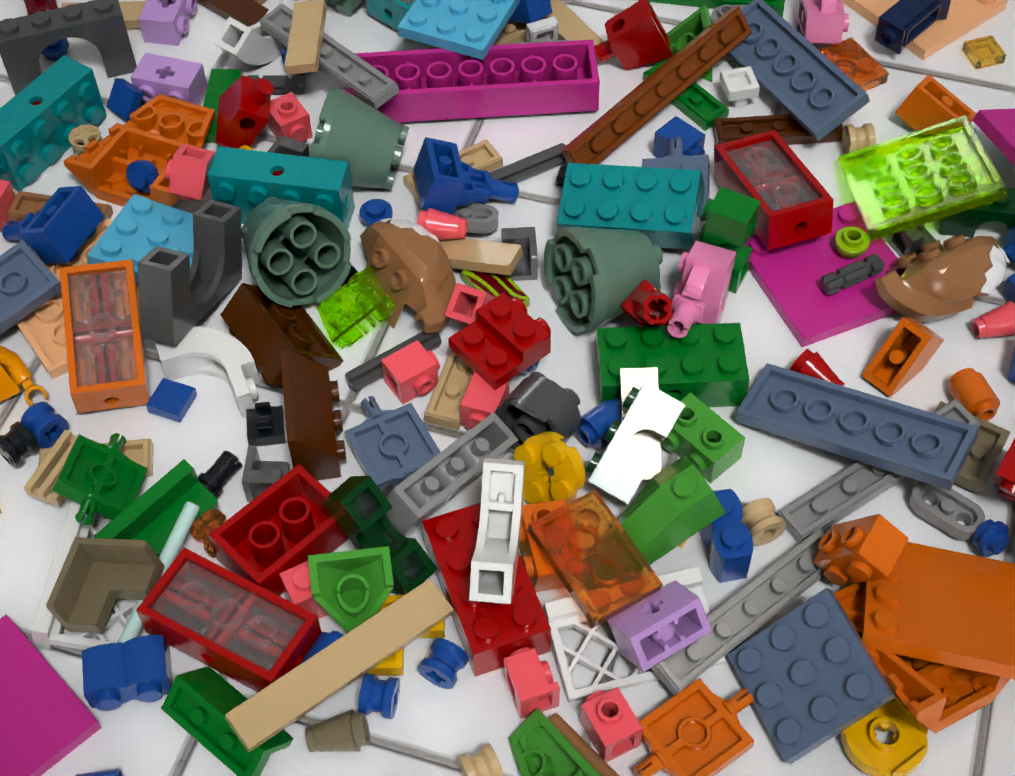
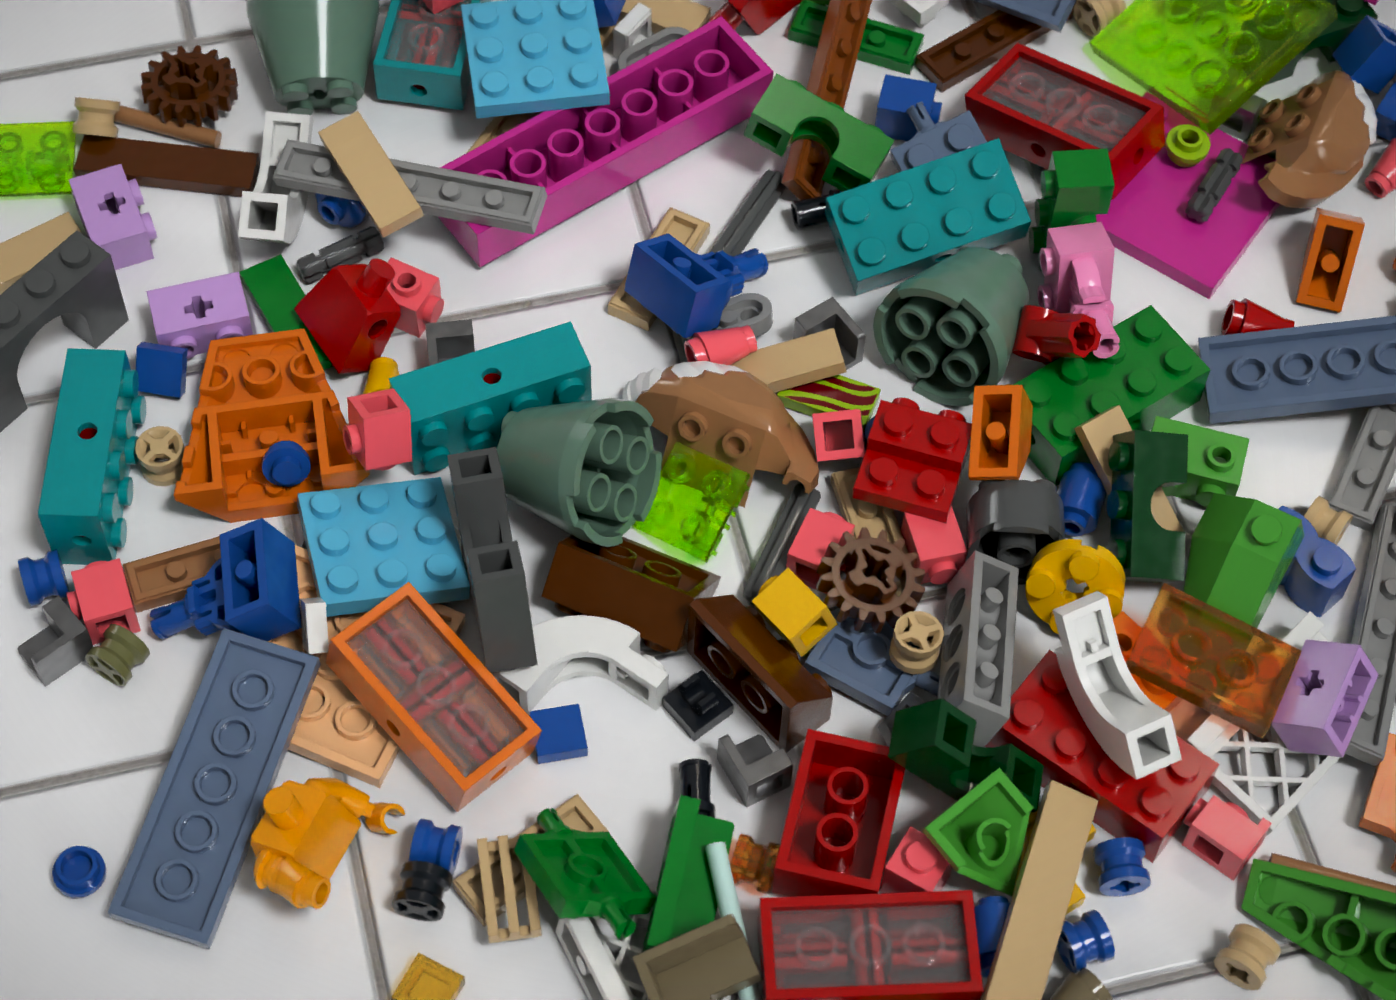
camera: 35 degrees left, 5 degrees up
(72, 256) = (314, 625): none -> white tile
(354, 394) = (794, 611): none -> yellow brick
(361, 136) = (532, 284): sand green cone -> none
(375, 211) = (612, 369): blue plate -> none
(410, 442) = (923, 632): none -> tan wheel
(435, 398) = (870, 579): none -> reddish brown gear
(565, 347) = (1000, 432): none -> orange slope
(584, 106) = (793, 113): none -> green arch
(610, 724) = (1336, 831): coral brick -> none

